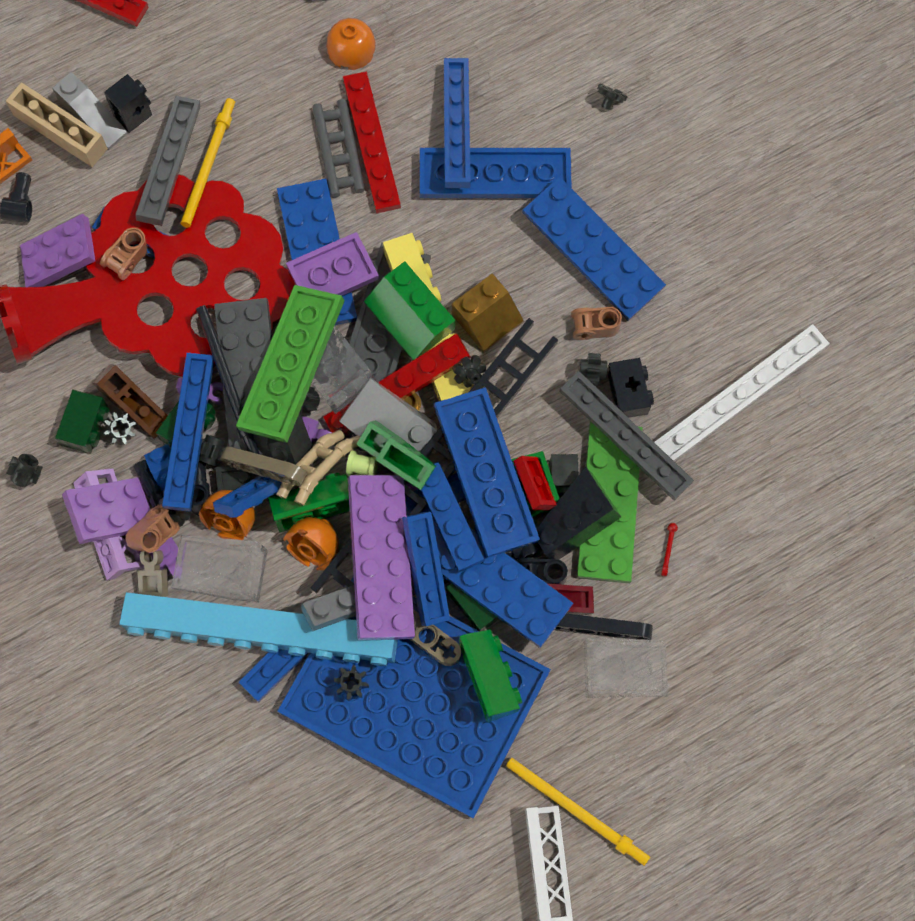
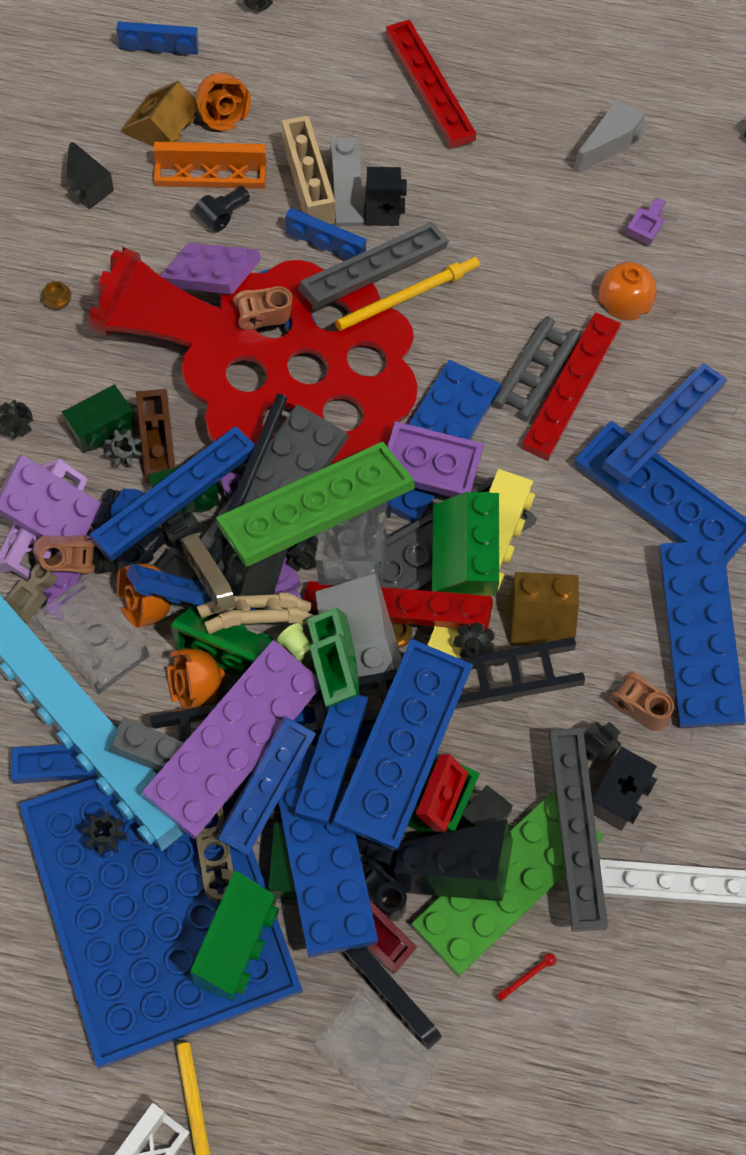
camera: 40 degrees right, 10 degrees down
(111, 164) = (323, 235): none -> blue plate

